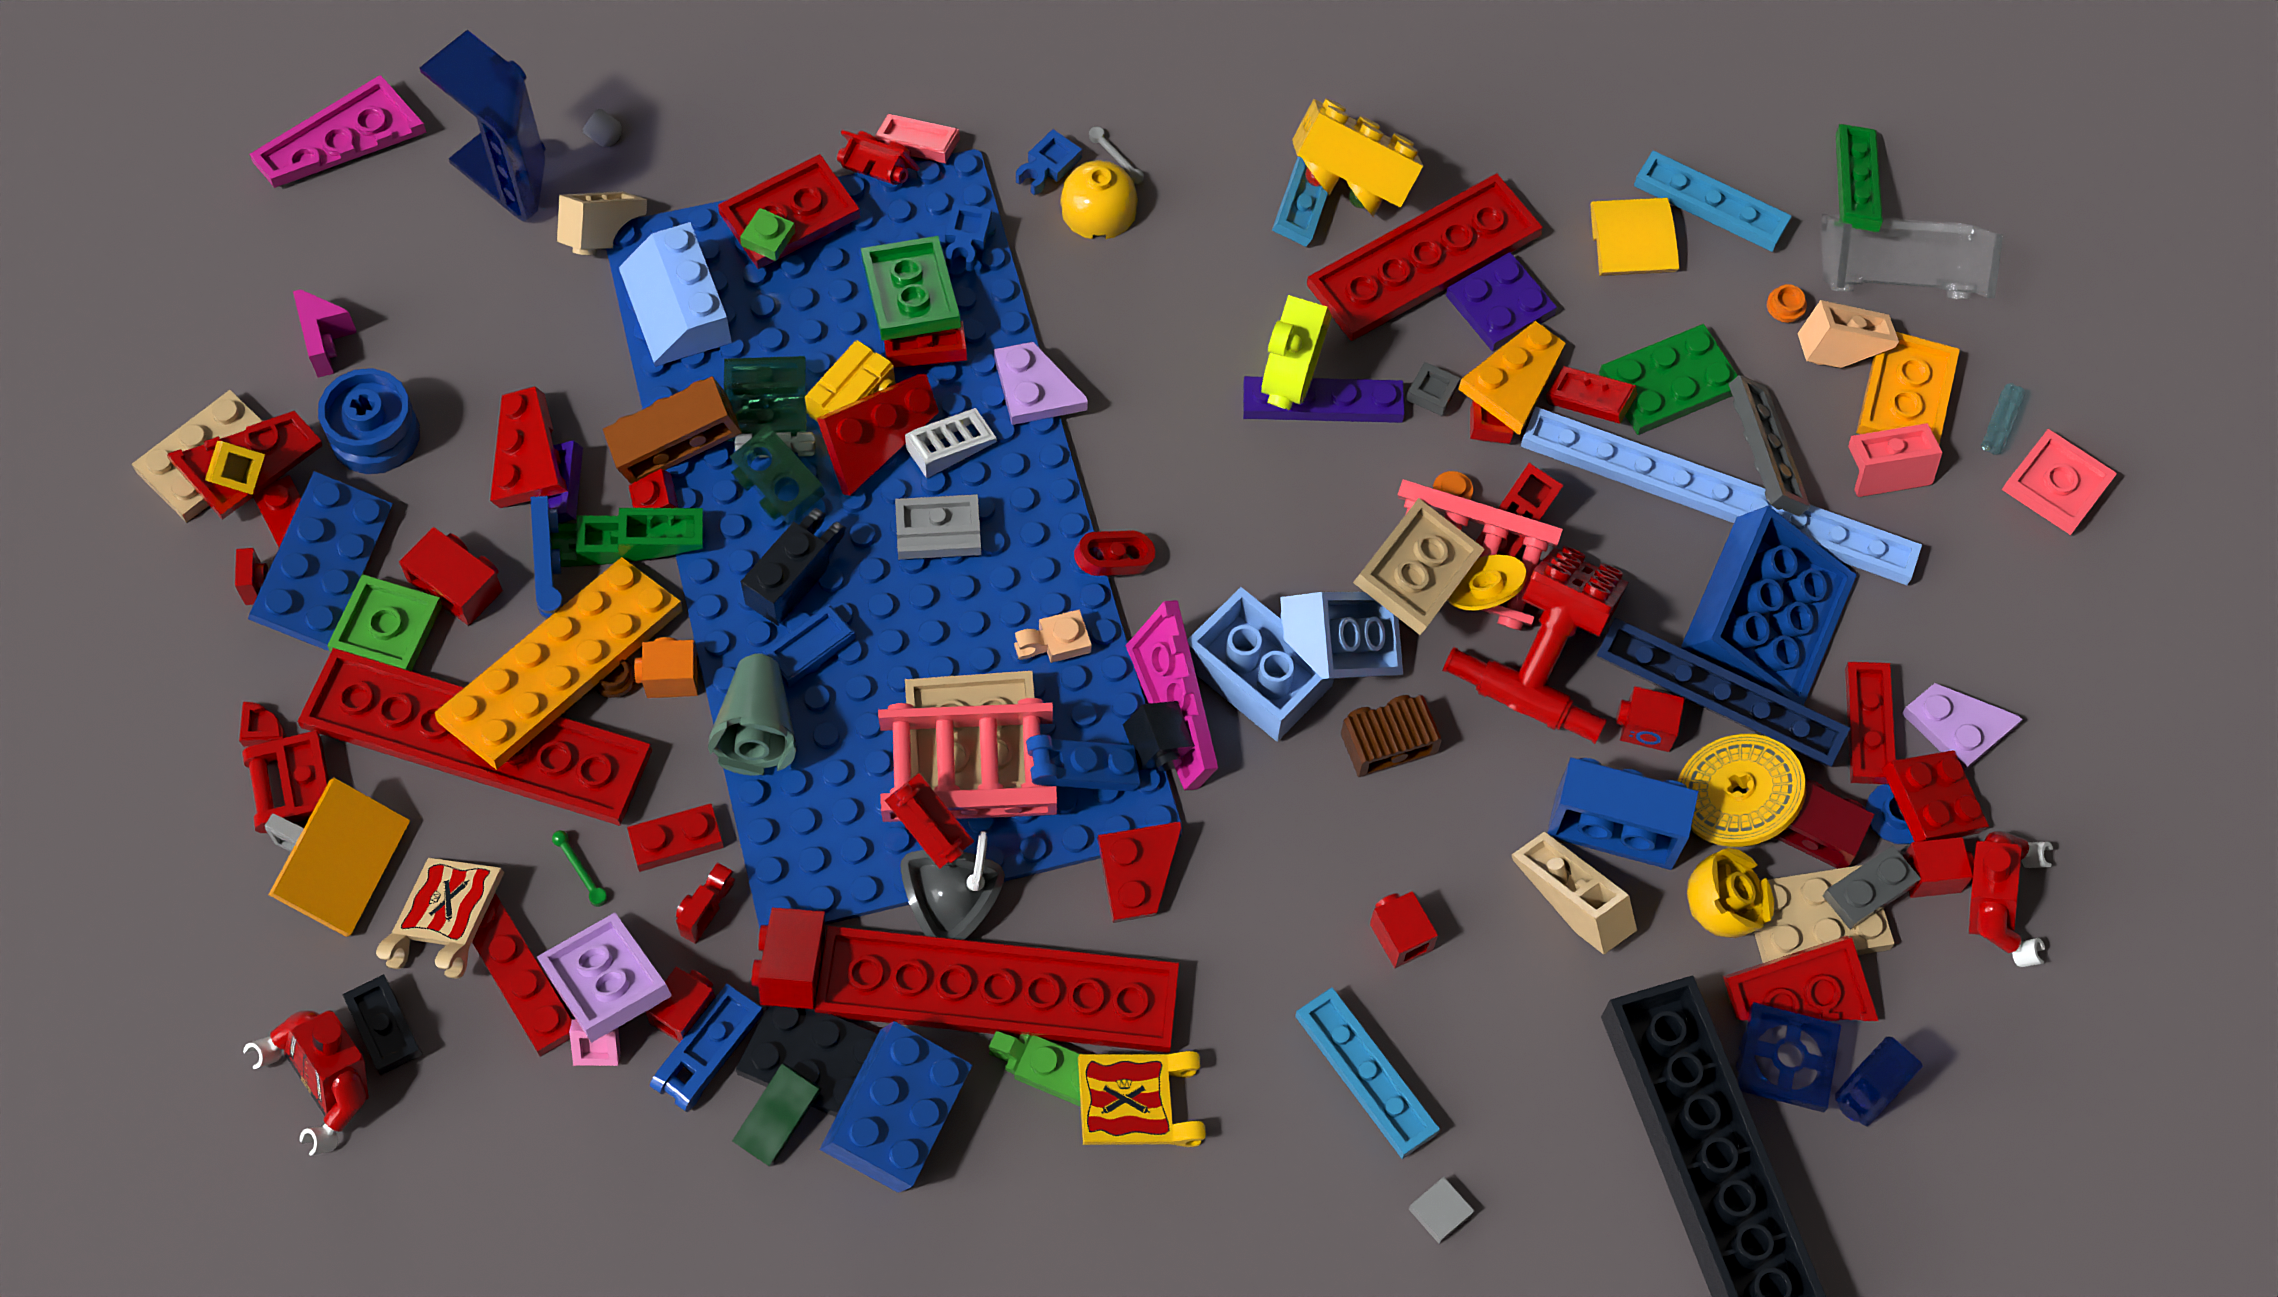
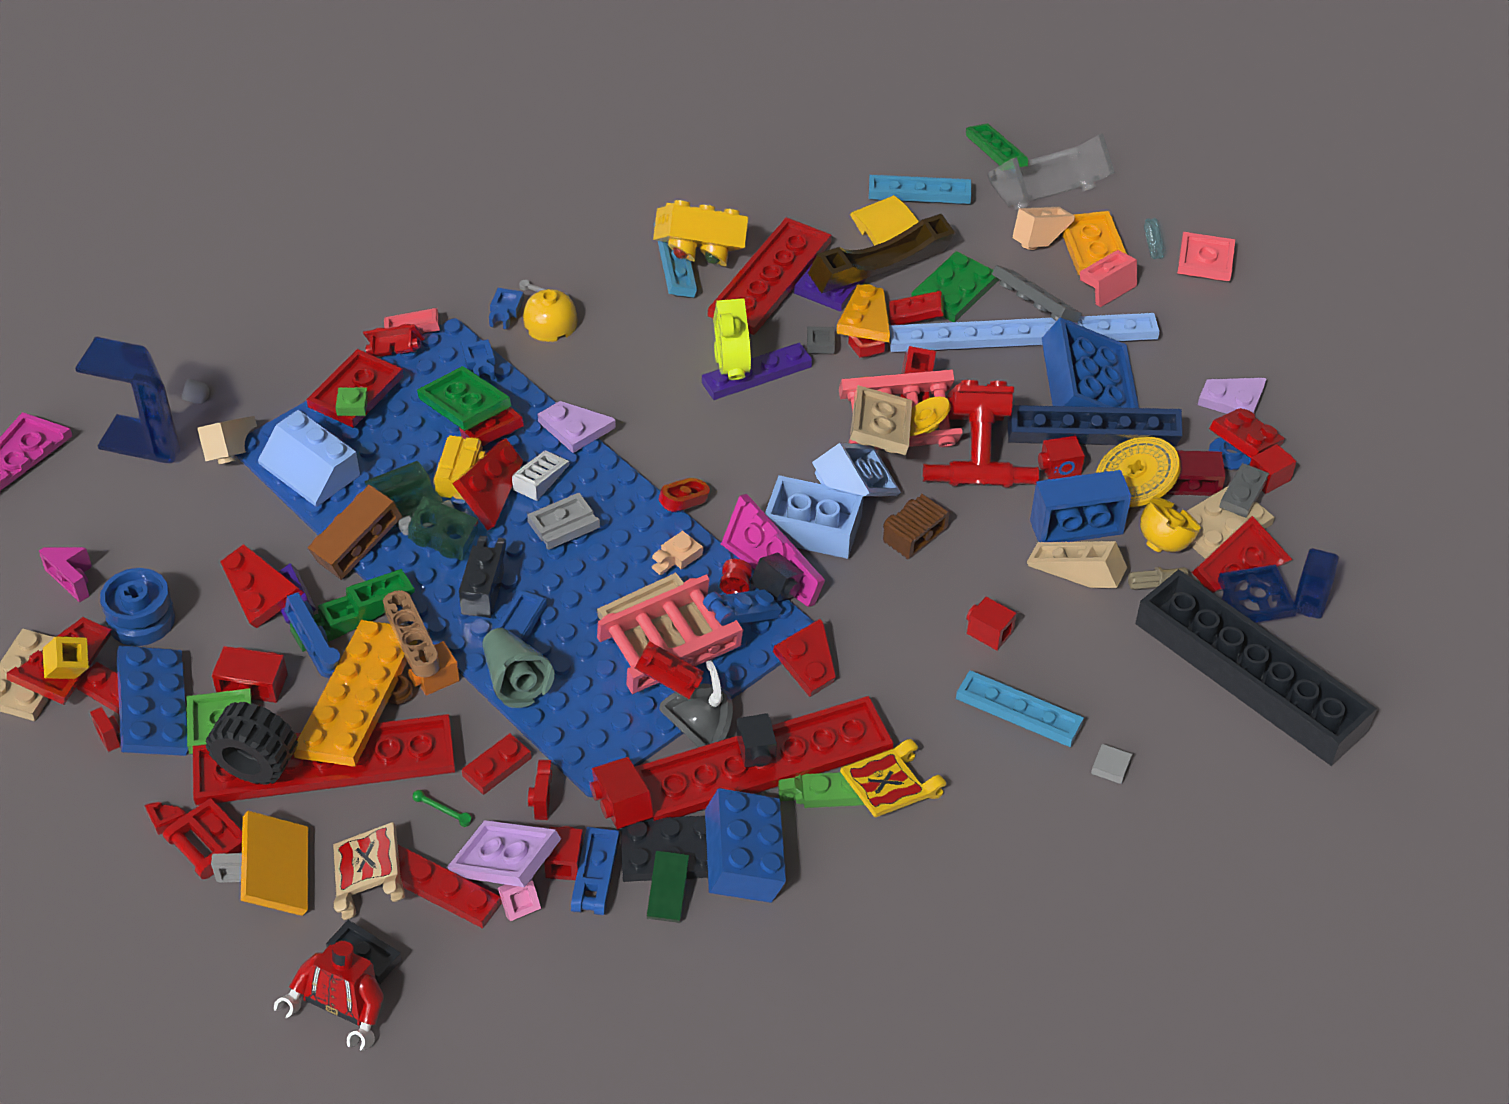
camera: 25 degrees left, 15 degrees down
(379, 690) = (251, 743): none -> black tyre
(654, 491) = (358, 572): red plate -> none
(654, 611) = (410, 633): none -> medium nougat beam
(991, 967) = (756, 740): none -> black brick
(1105, 711) = (735, 576): none -> red wheel
(1636, 293) = (844, 266): none -> dark brown arch
(1670, 964) = (1151, 578): none -> dark tan axle
(1787, 303) = (996, 224): orange plate -> none
(1869, 721) = (1195, 423): red plate -> none
(1996, 892) = (1315, 466): red torso -> none

